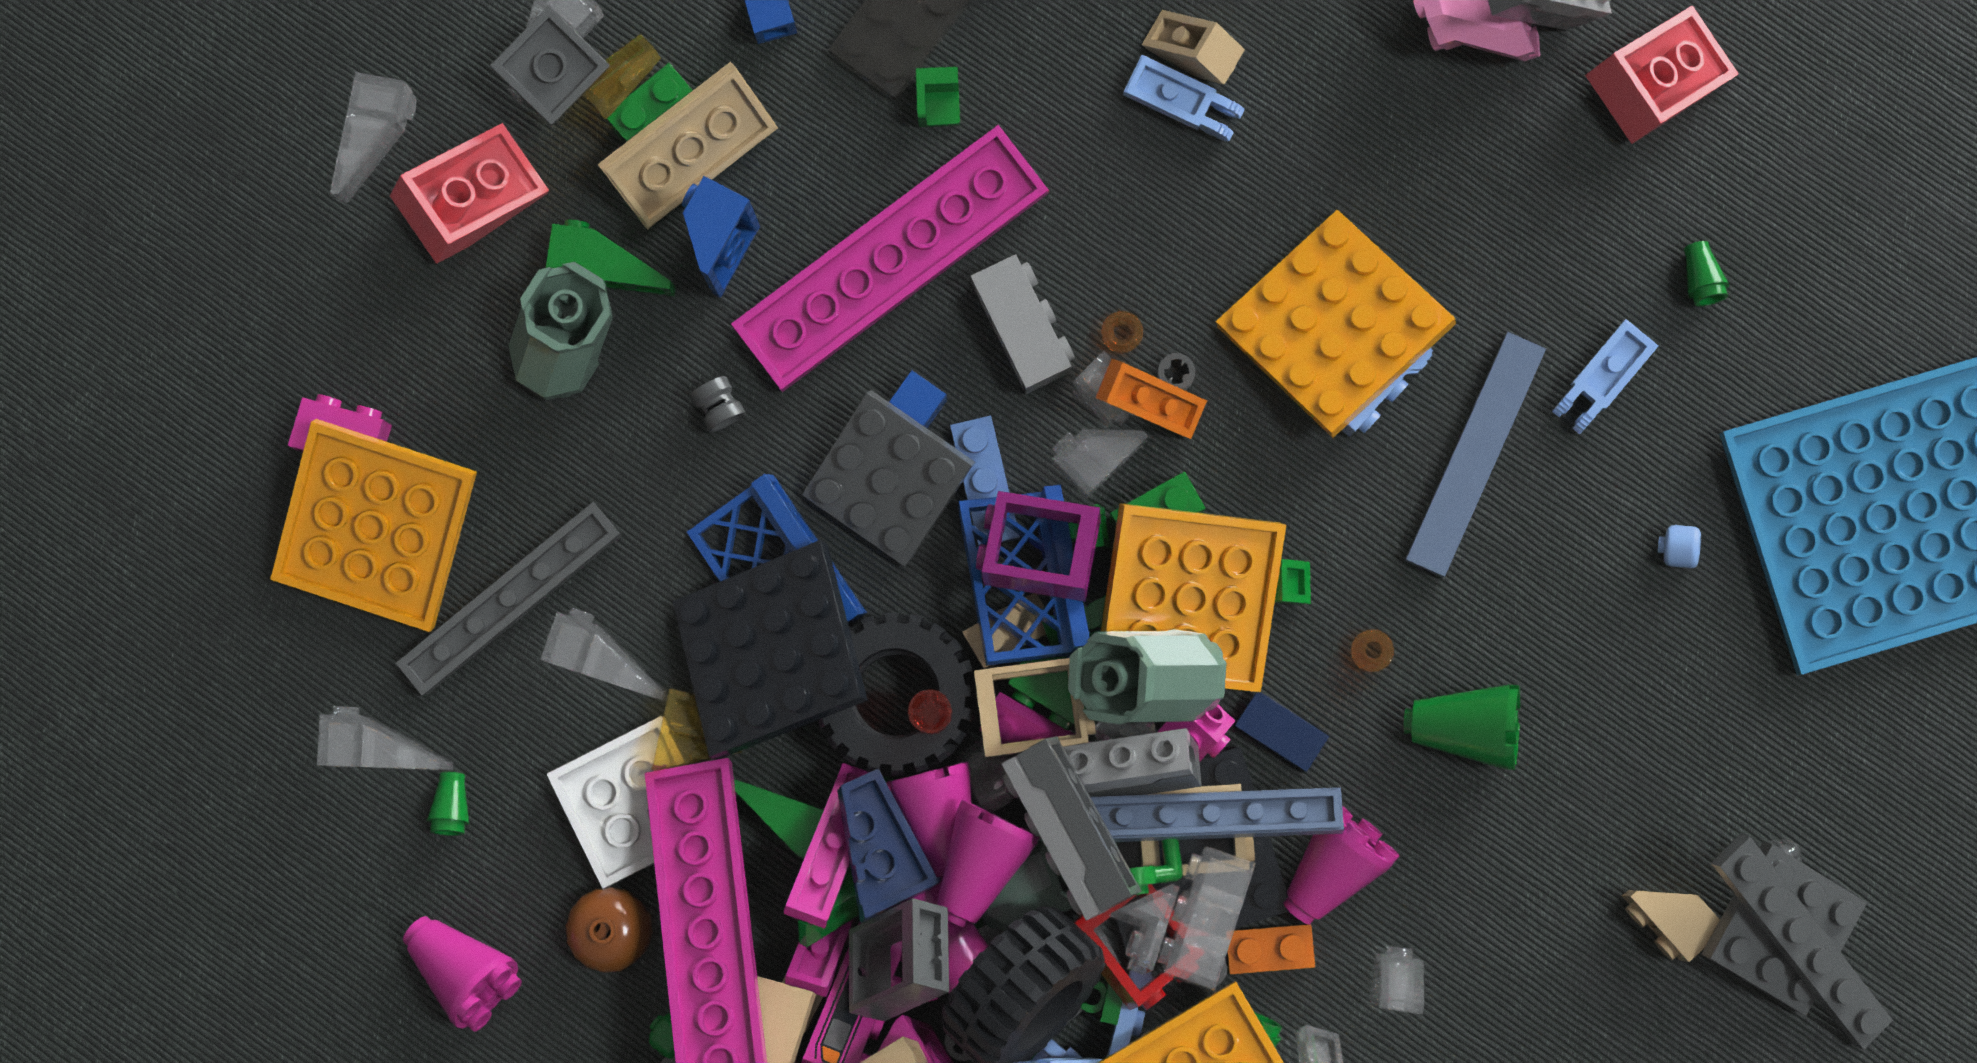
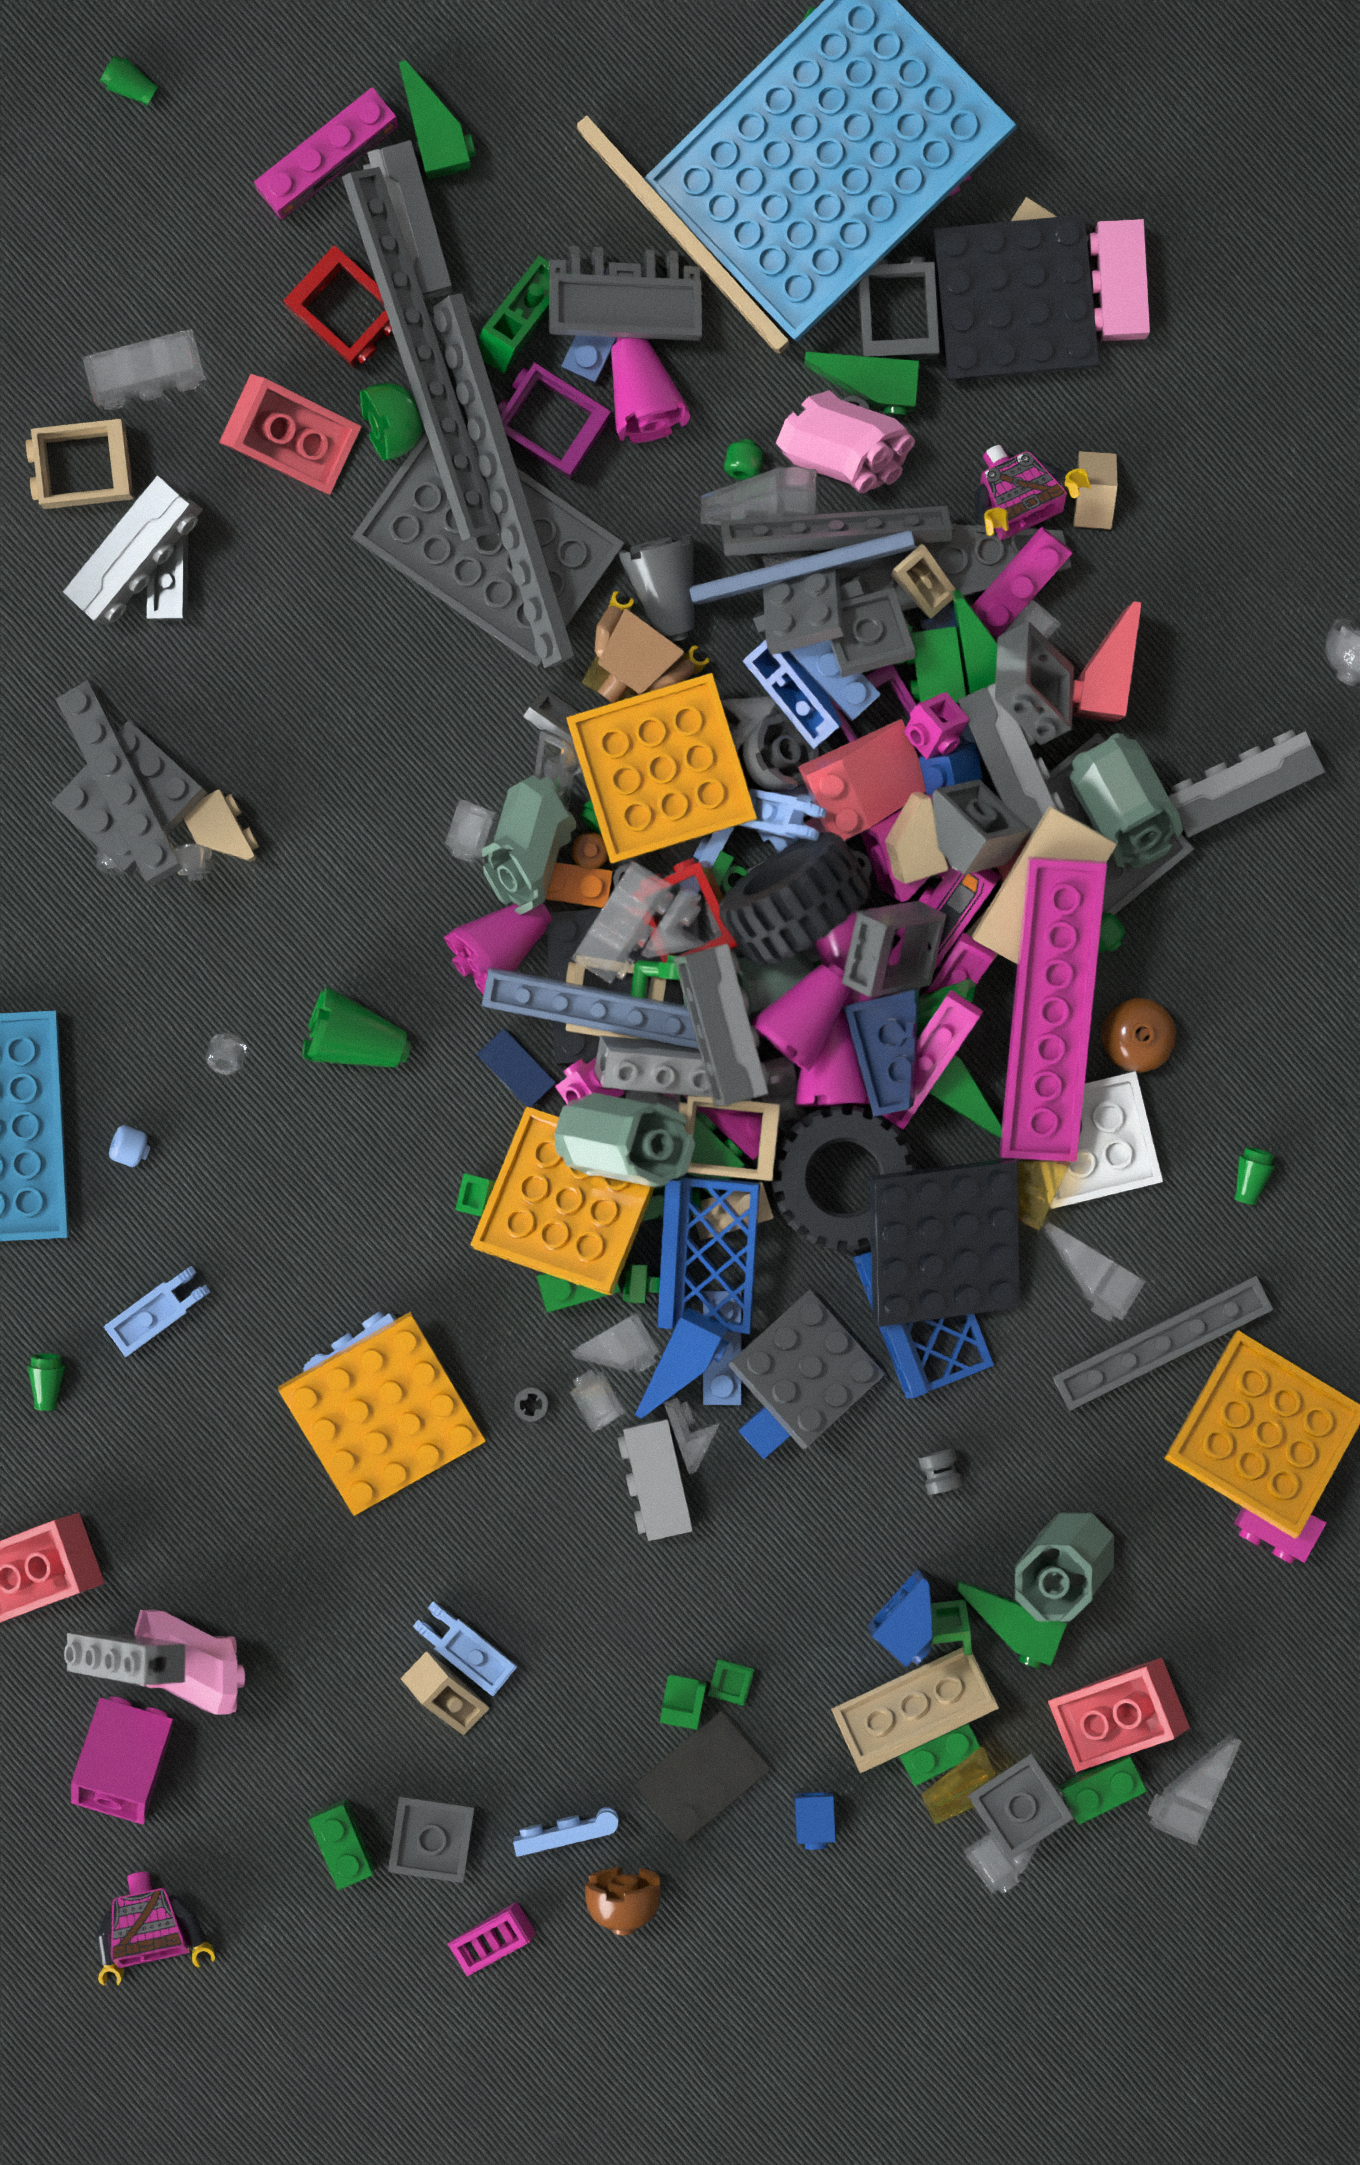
camera: 170 degrees left, 5 degrees up
(366, 743) = (1312, 1245): clear slope -> none
(461, 971) = (1273, 1029): dark pink cone -> none
(469, 108) = (1102, 1788): none -> green brick
(669, 243) = (951, 1623): none -> green panel
(890, 258) = (758, 1566): dark pink plate -> none
(891, 131) = (731, 1681): none -> green tile
(929, 705) = (821, 1150): clear red wheel -> none
(993, 371) = (691, 1443): none -> clear slope
(1023, 454) = (688, 1354): none -> blue slope
(1034, 581) = (663, 1236): magenta window -> none
(1126, 319) = (569, 1464): clear orange plate -> none
(1151, 398) = (560, 1382): orange plate -> none
(1260, 990) = (589, 851): none -> dark orange piece
(1332, 982) = (527, 843): none -> sand green brick
(1360, 657) = (432, 1122): clear orange plate -> none
(1475, 454) = (286, 1269): sand blue tile -> none
(1602, 671) = (226, 1053): none -> clear piece
(1693, 875) = (195, 860): none -> clear piece

